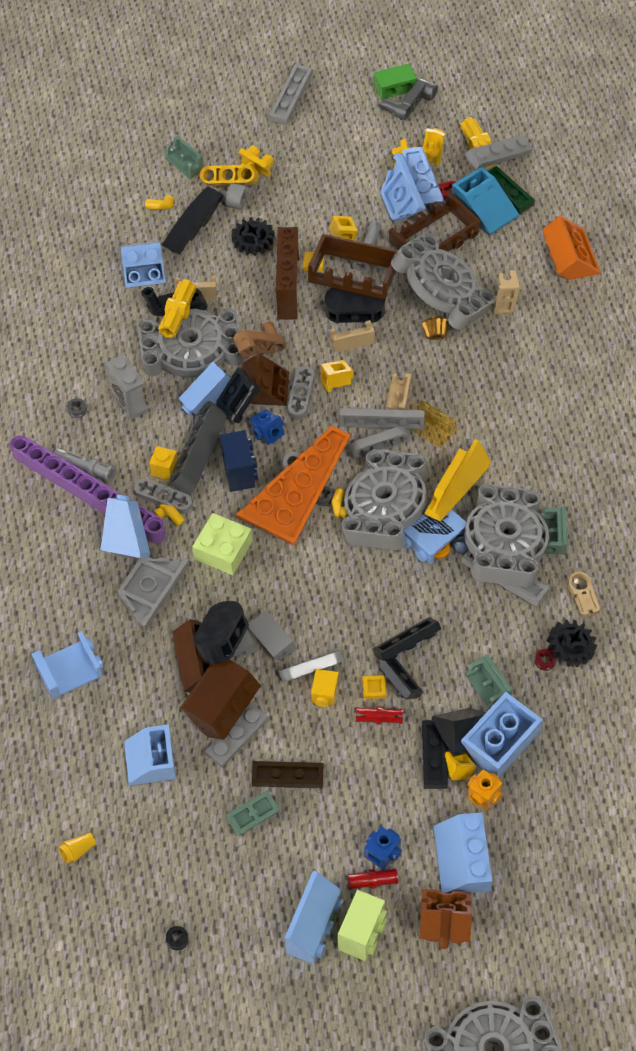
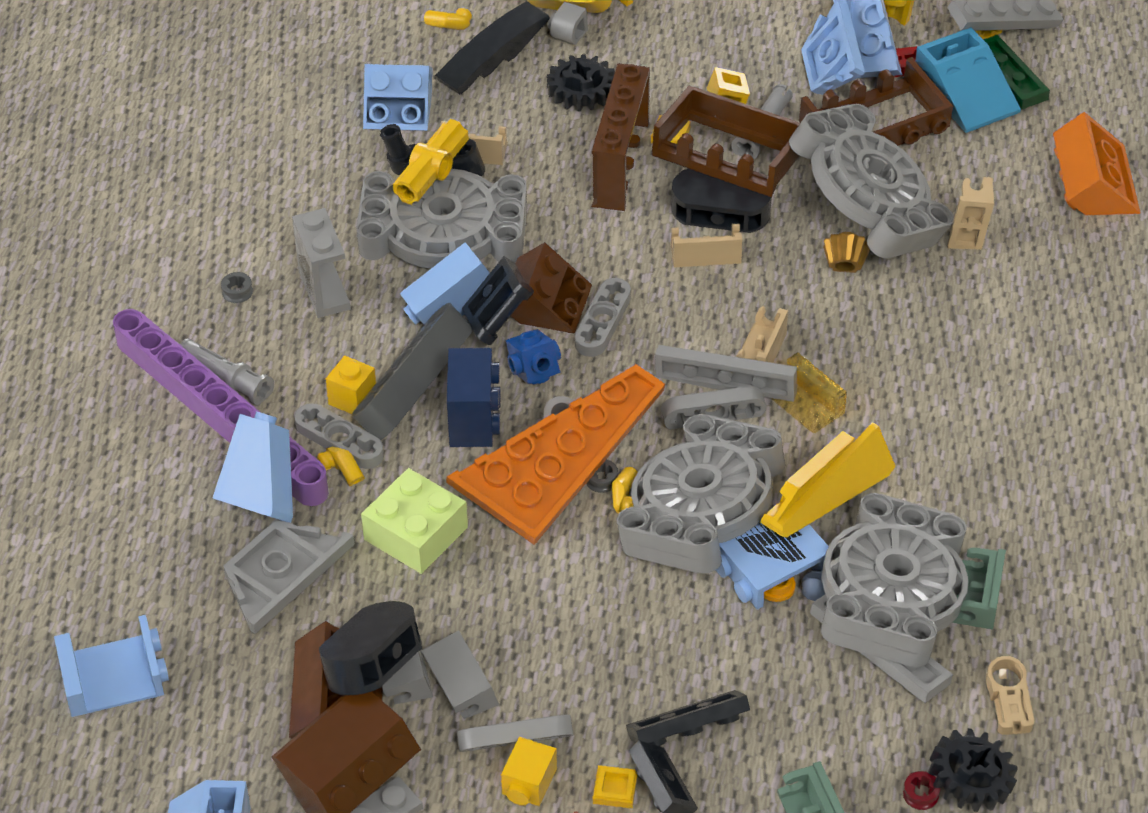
camera: 10 degrees right, 10 degrees down
(258, 342) = (535, 225): medium nougat beam -> none
(336, 374) = (665, 297): yellow brick -> none

